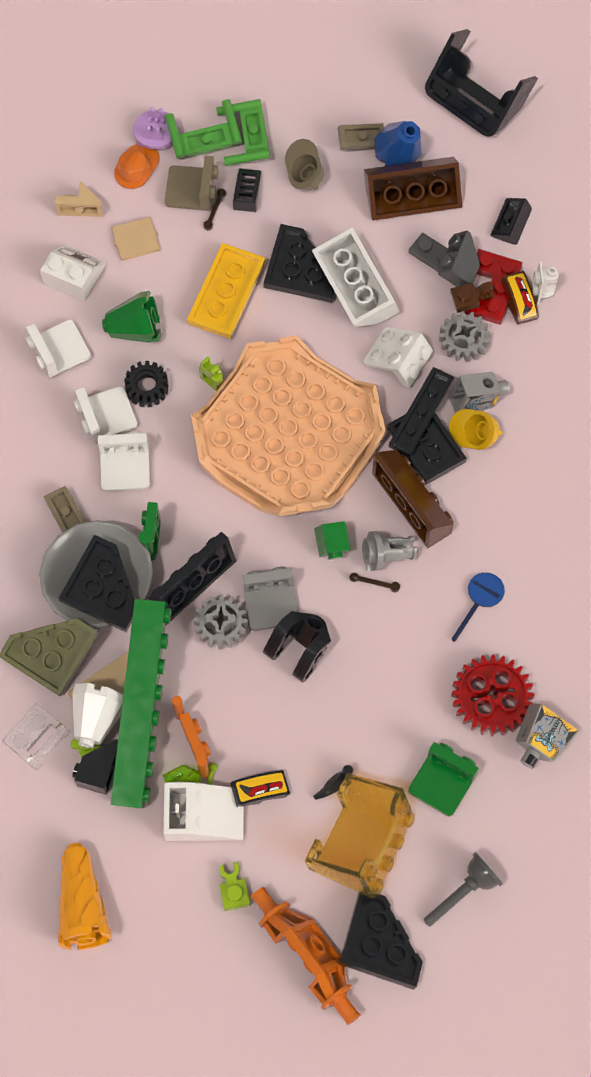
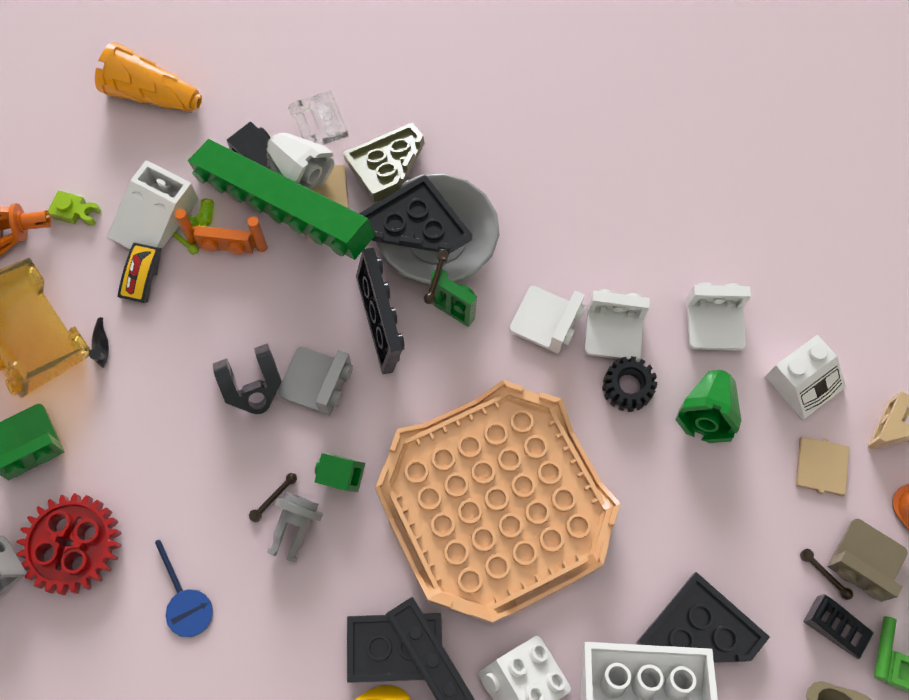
camera: 115 degrees right, 0 degrees up
(63, 508) = (524, 242): dark tan plate -> none
(128, 541) = (443, 256): none -> dark brown hinge
(211, 374) = (605, 451): lime plate -> none
(211, 621) = (324, 332): light grey gear -> none
(226, 290) = (708, 528): yellow plate -> none
(411, 497) = (334, 587): reddish brown slope -> none

